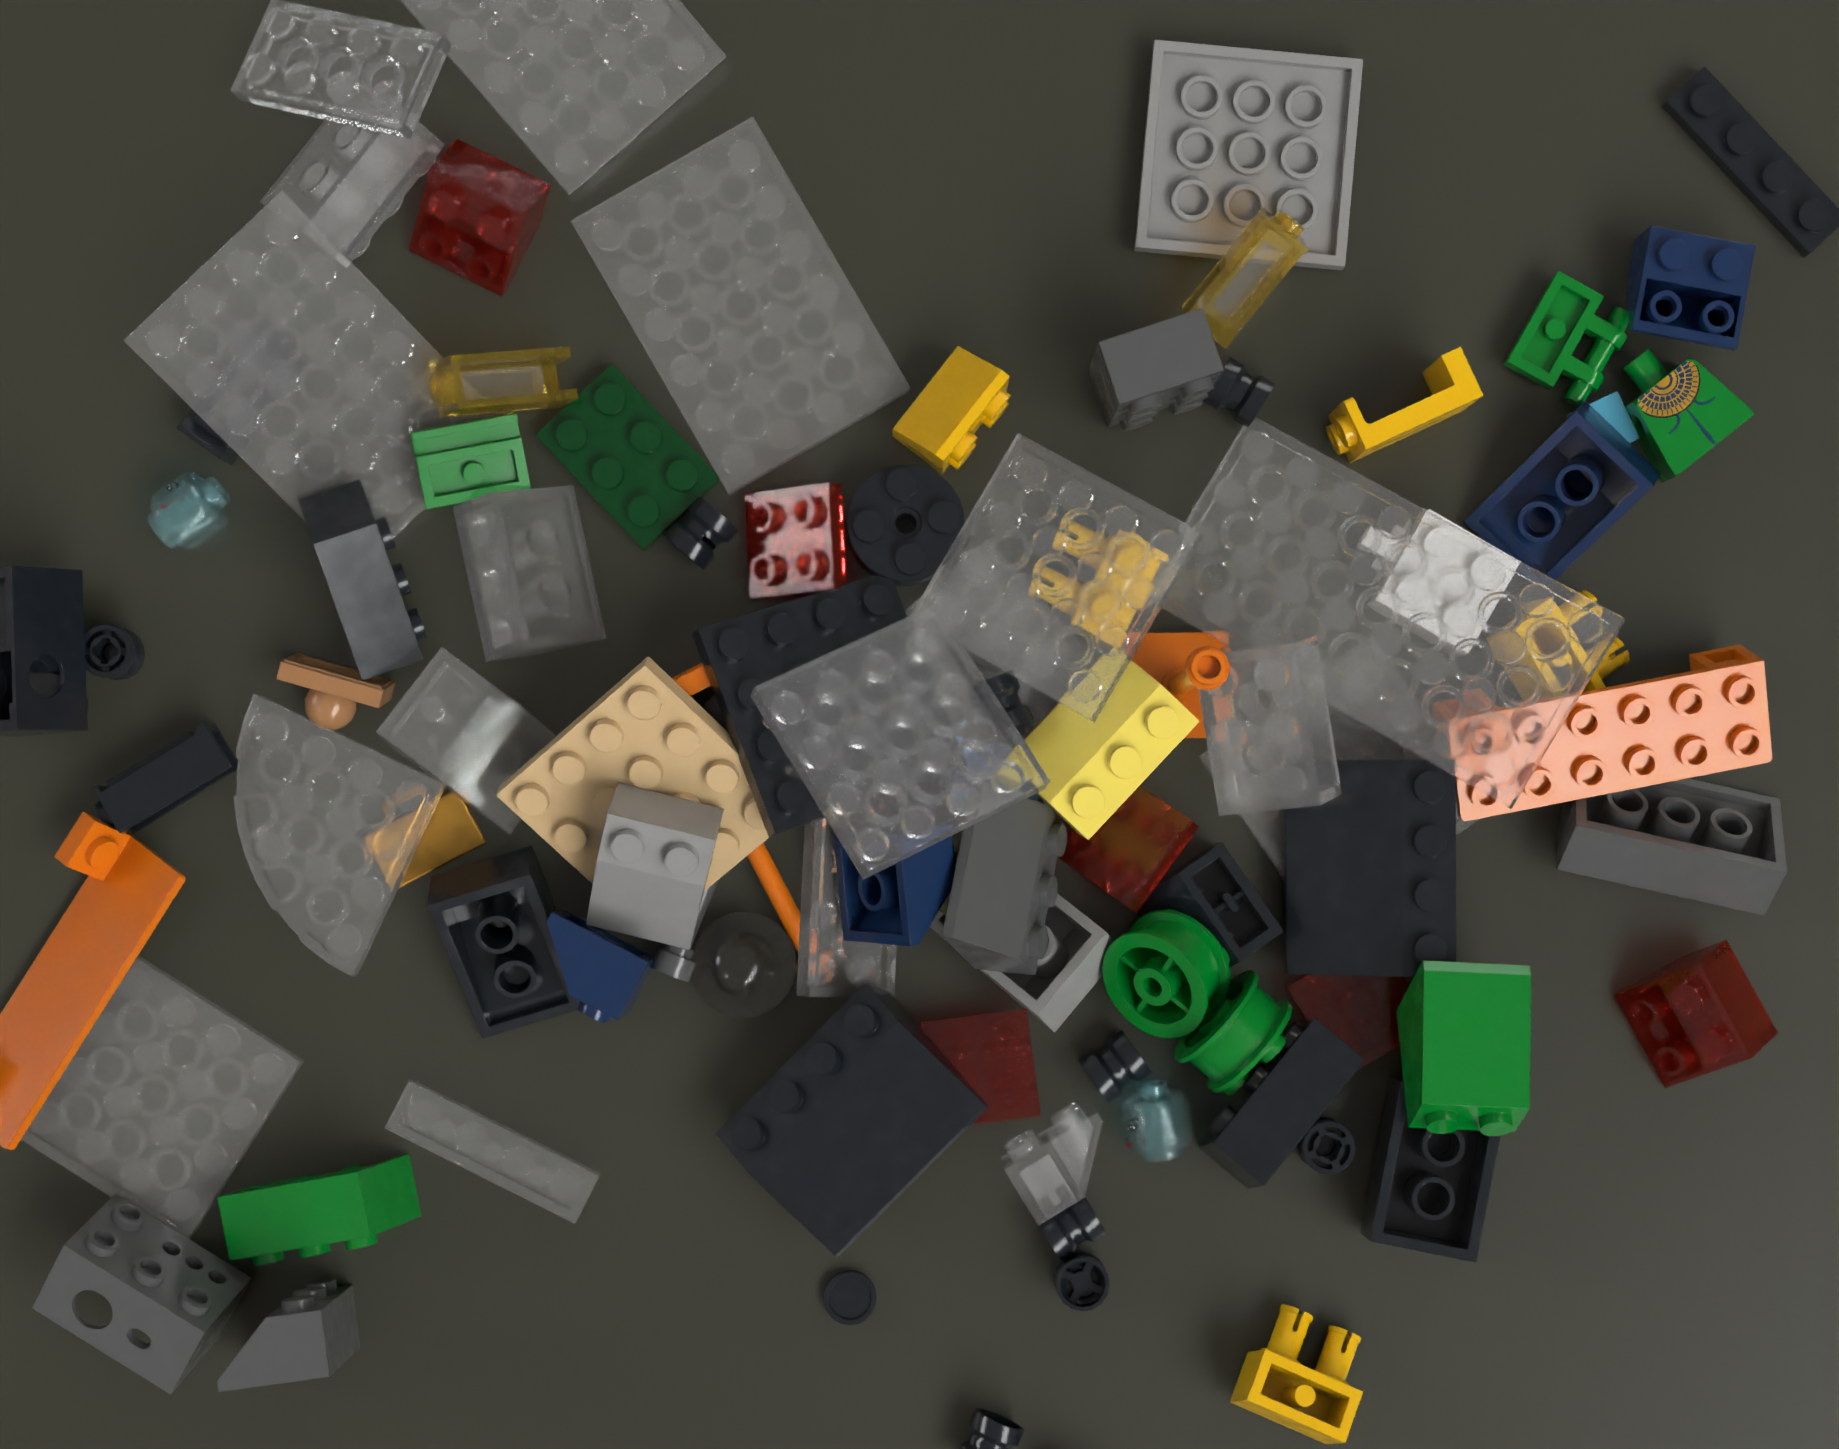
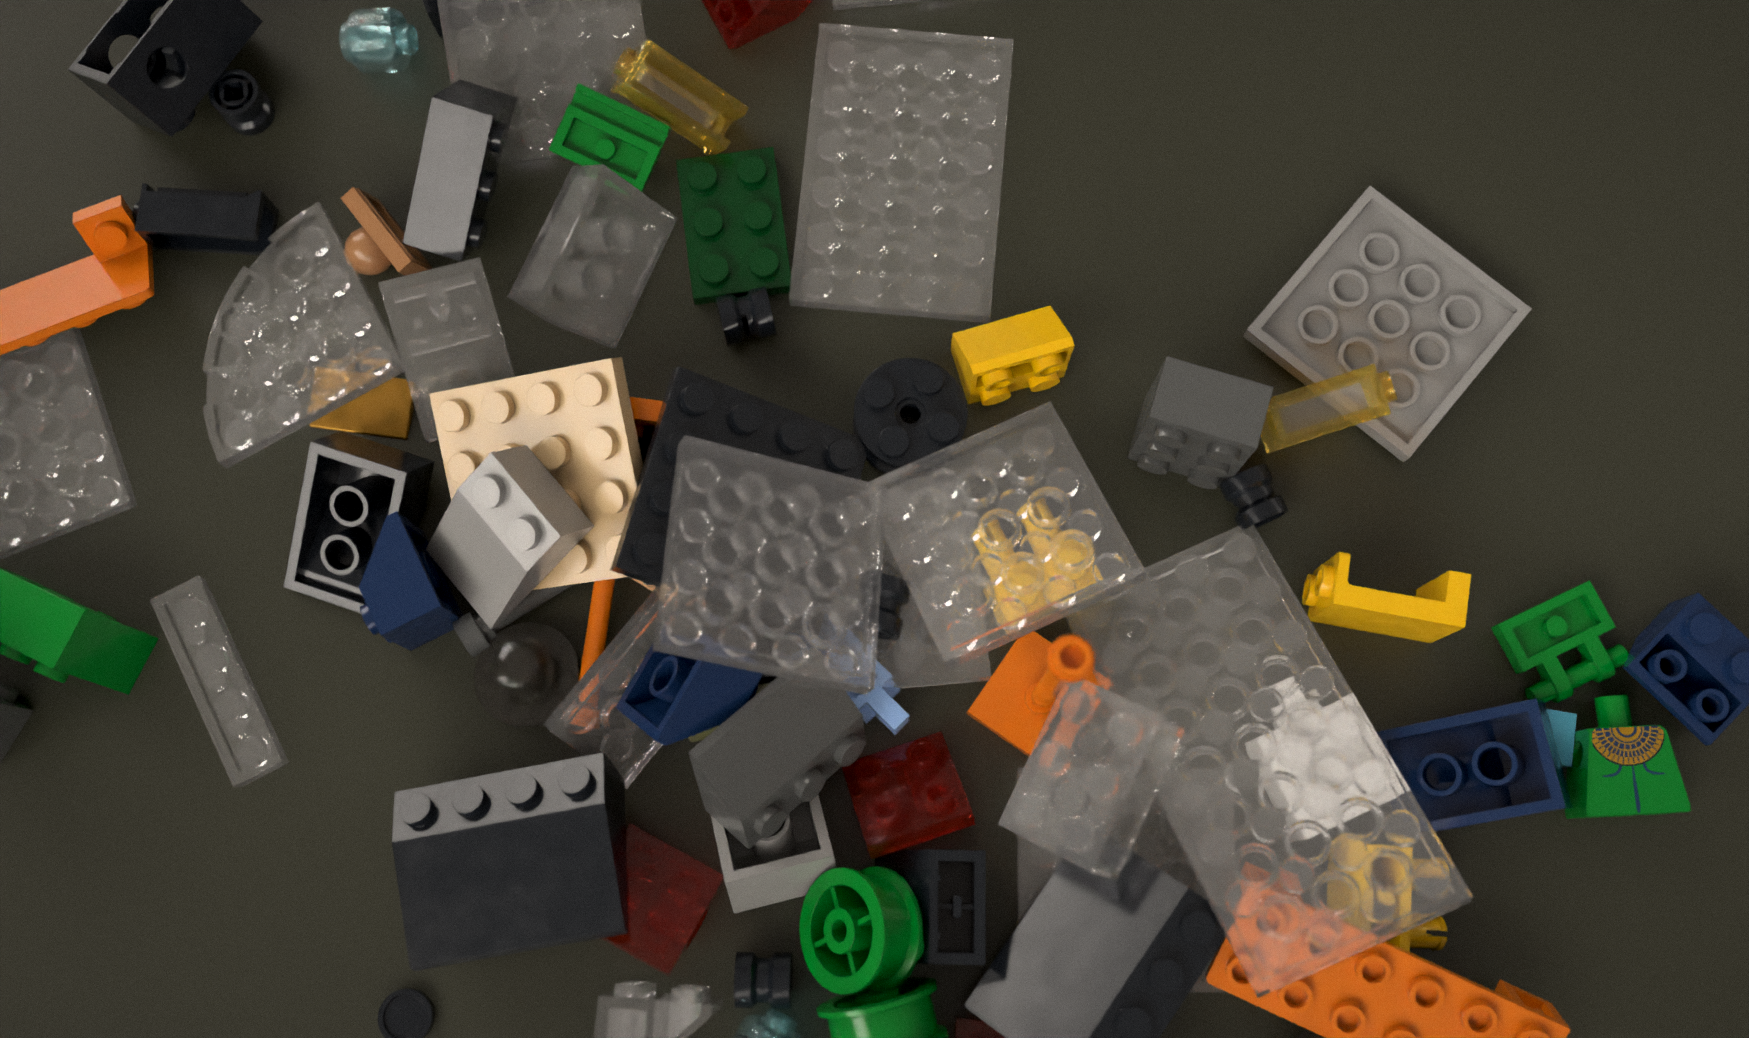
camera: 45 degrees right, 10 degrees down
(795, 541) = (815, 367): clear red plate -> none
(1105, 761) = (931, 709): light yellow slope -> none

